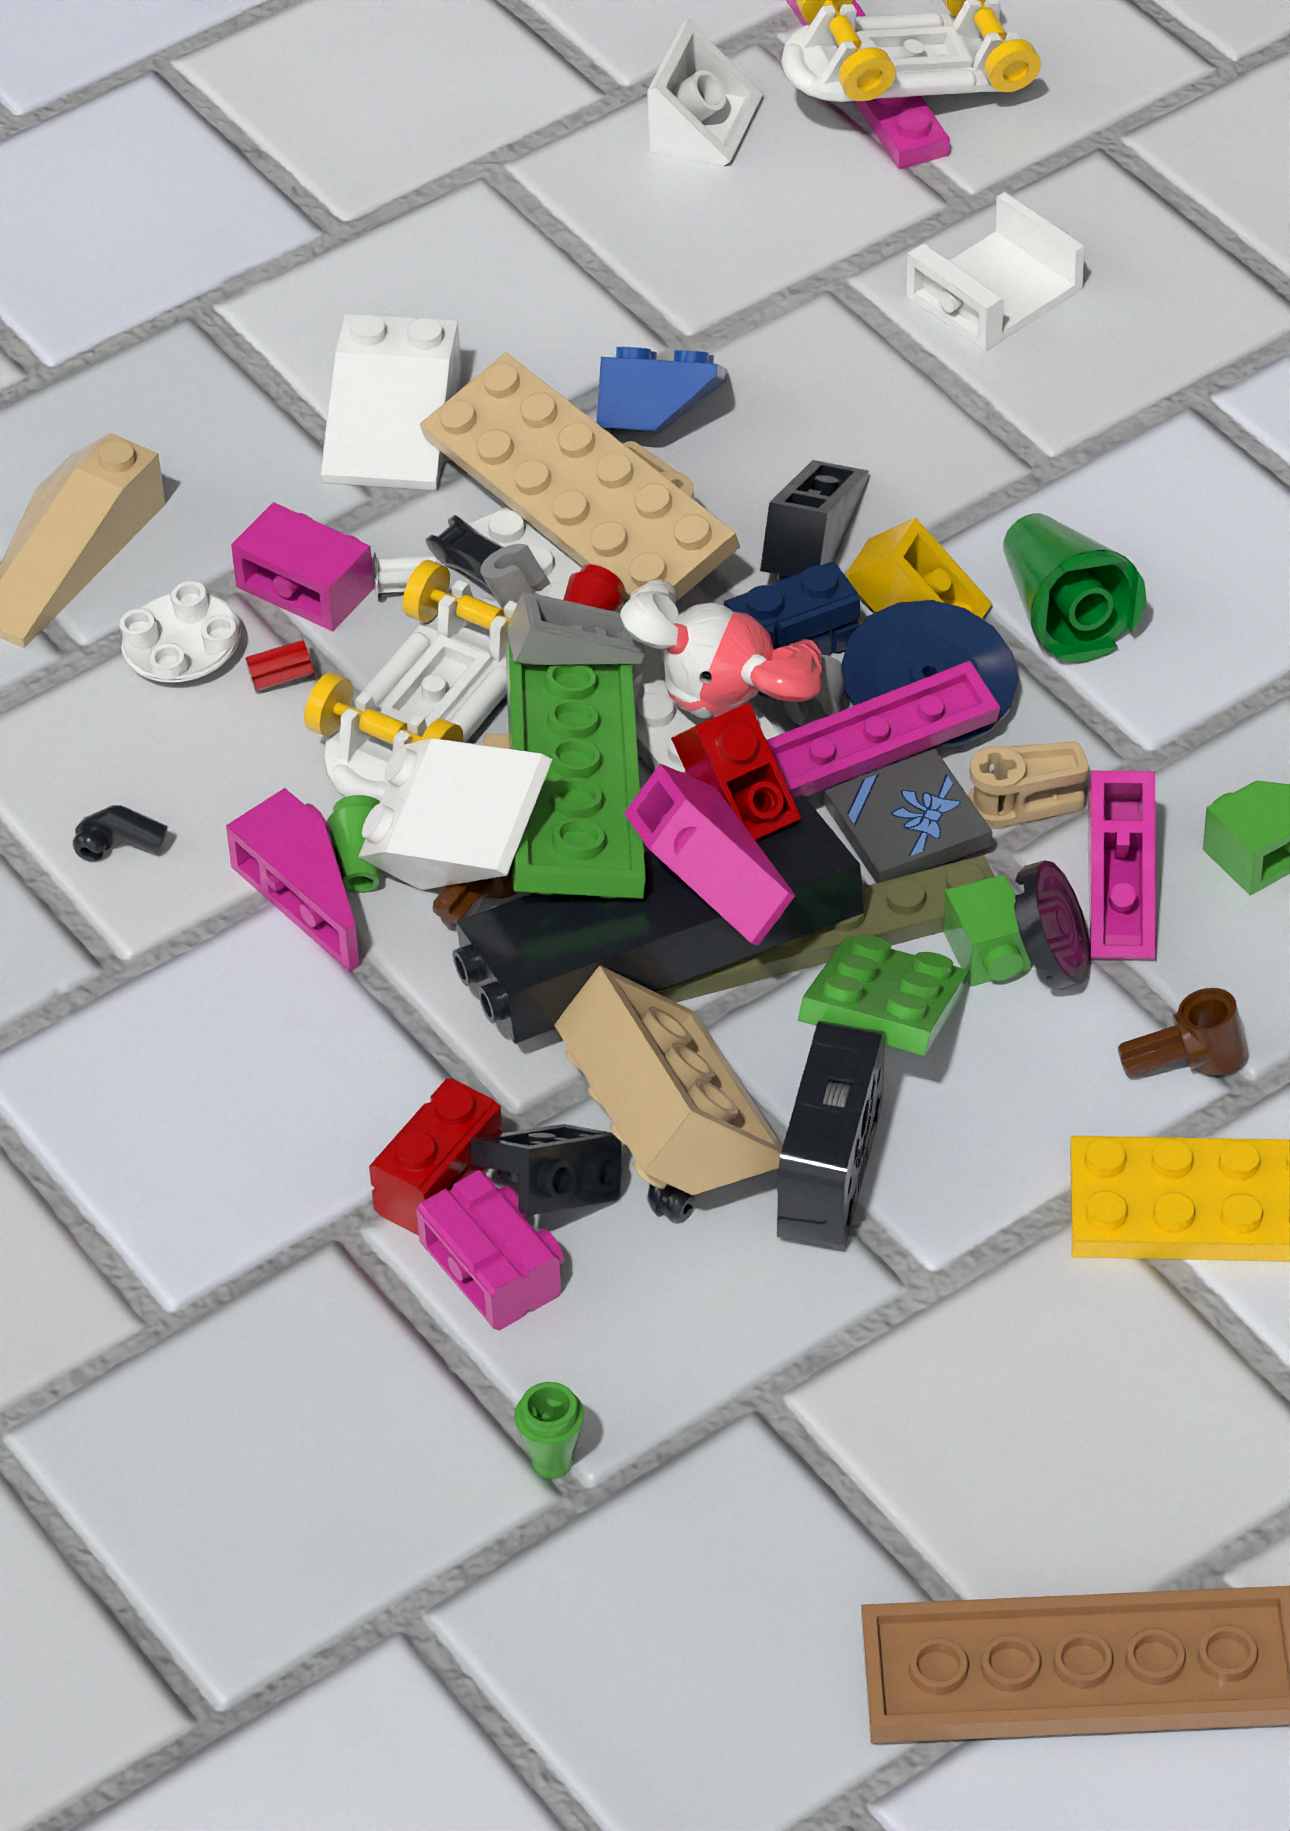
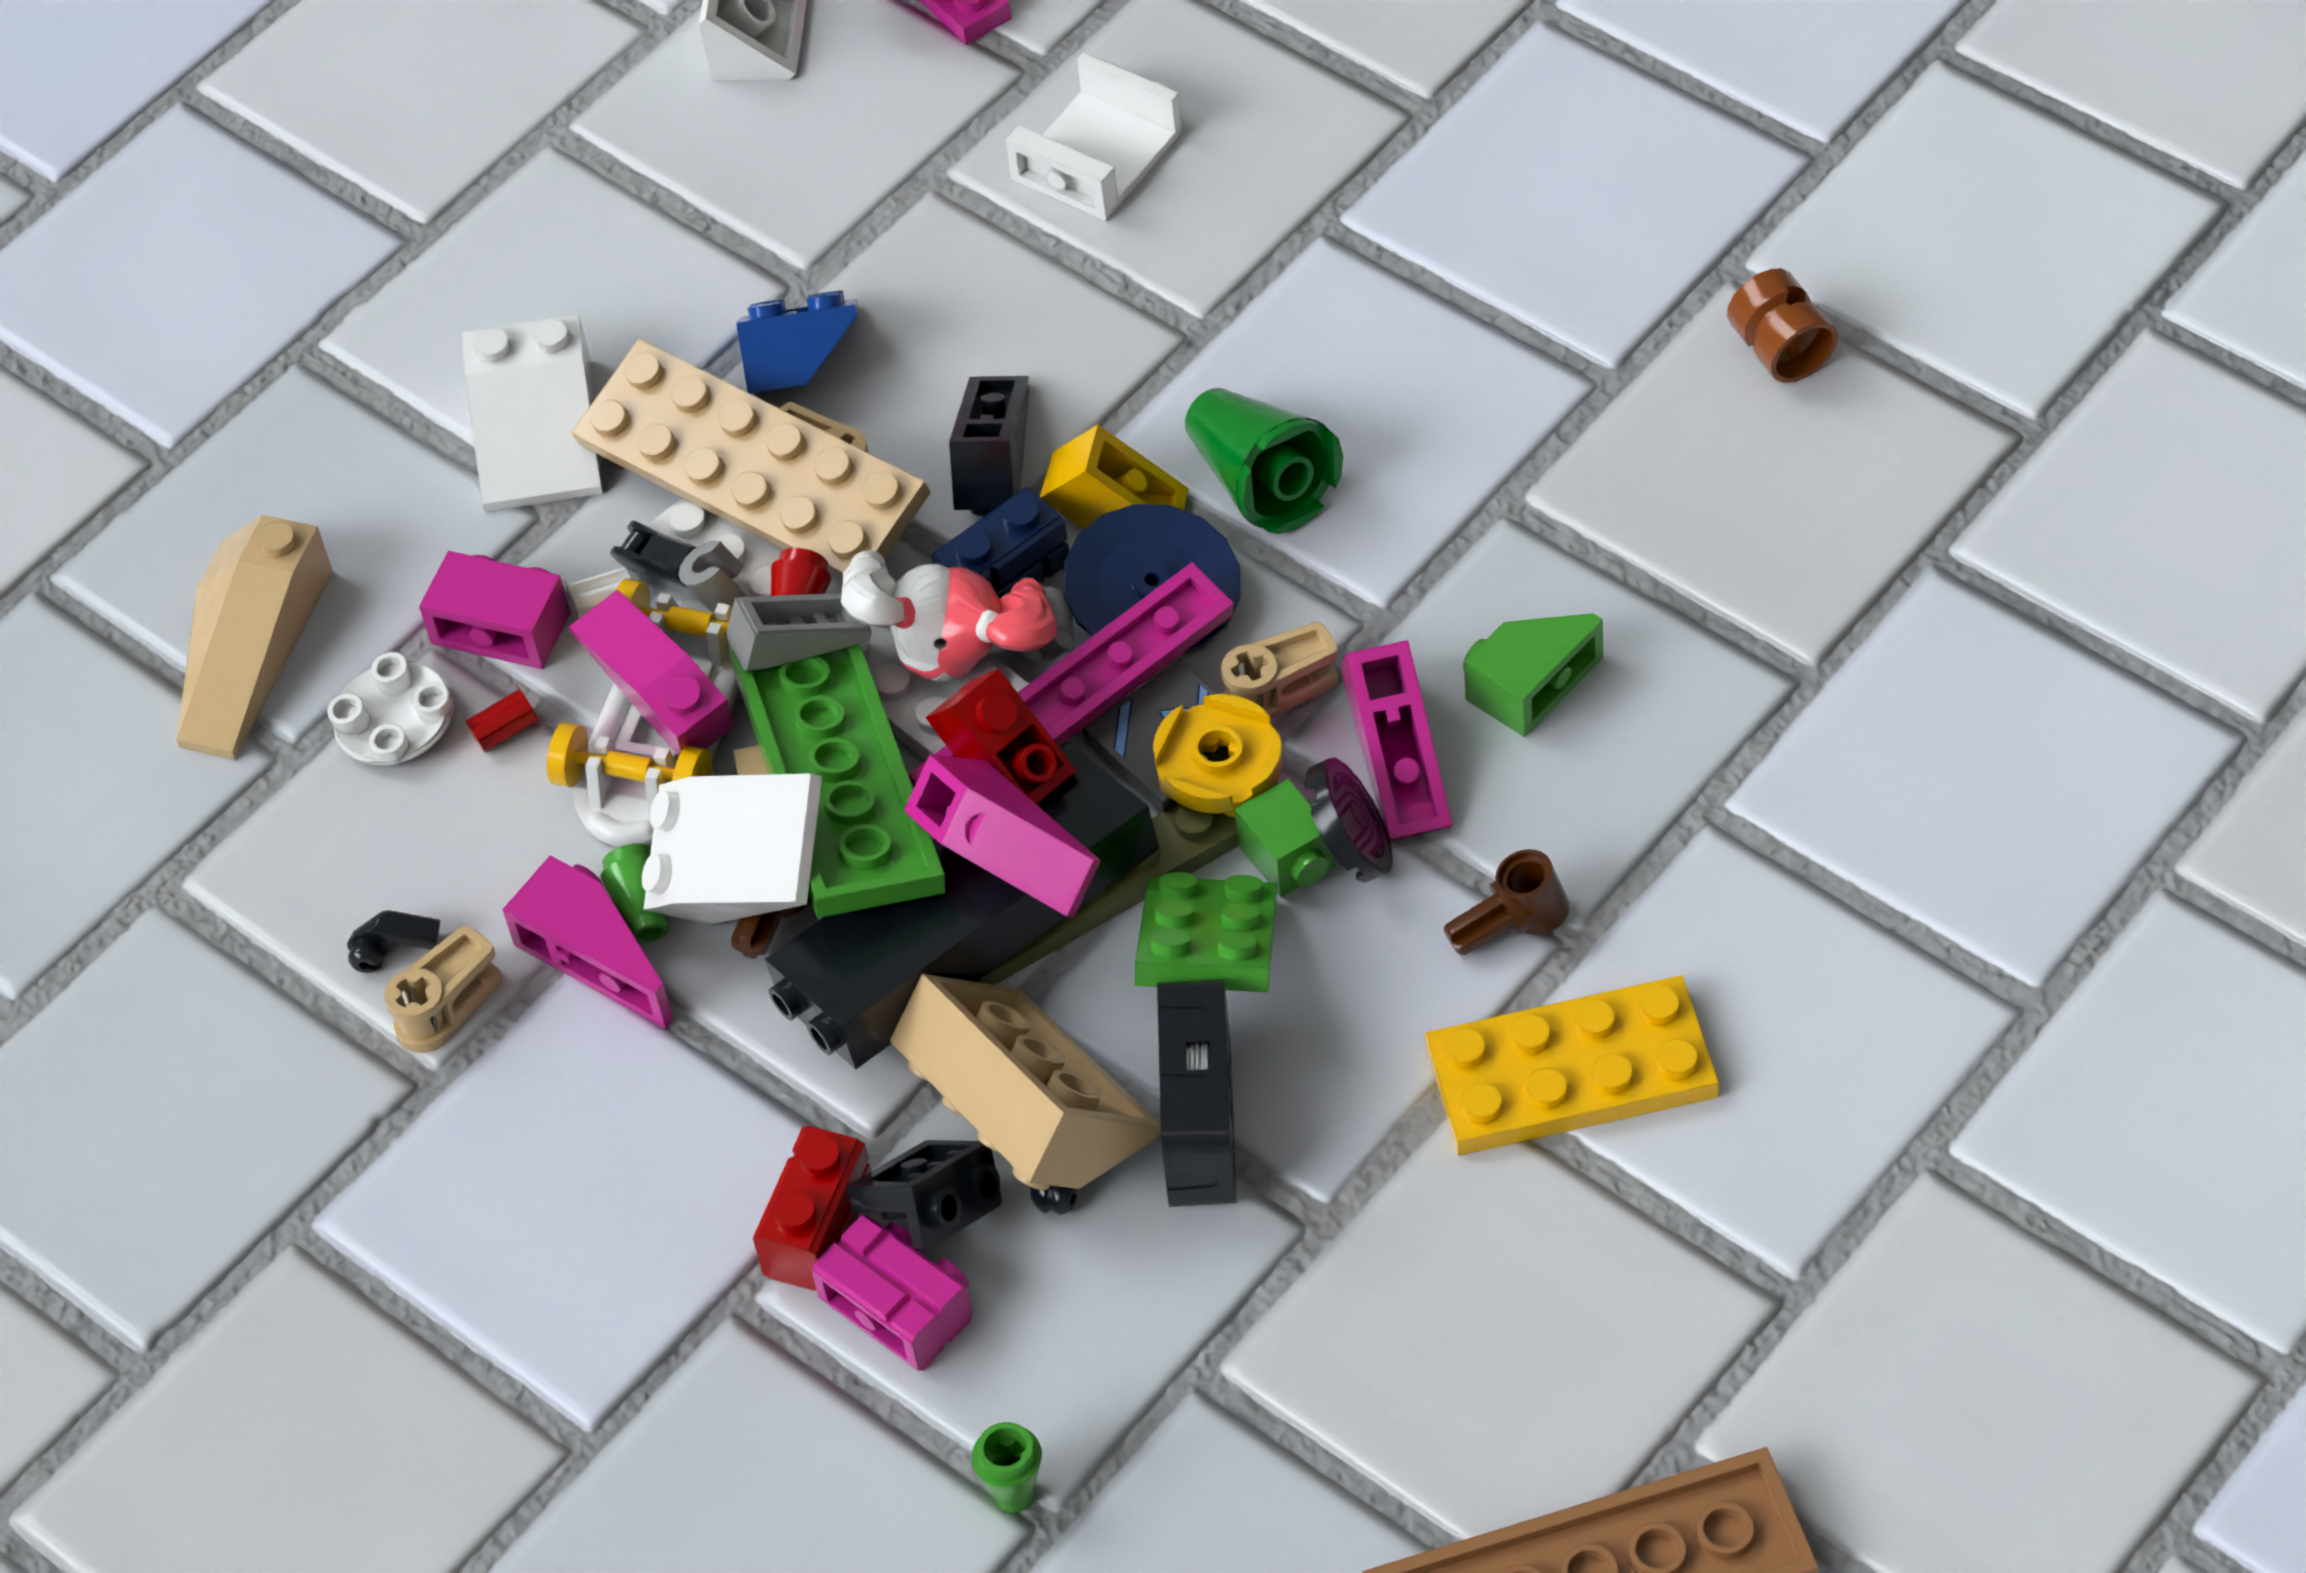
camera: 10 degrees left, 5 degrees up
(153, 884) = (442, 985): none -> tan piece
(430, 649) = (654, 674): none -> dark pink slope
(937, 866) = (1223, 785): none -> yellow plate

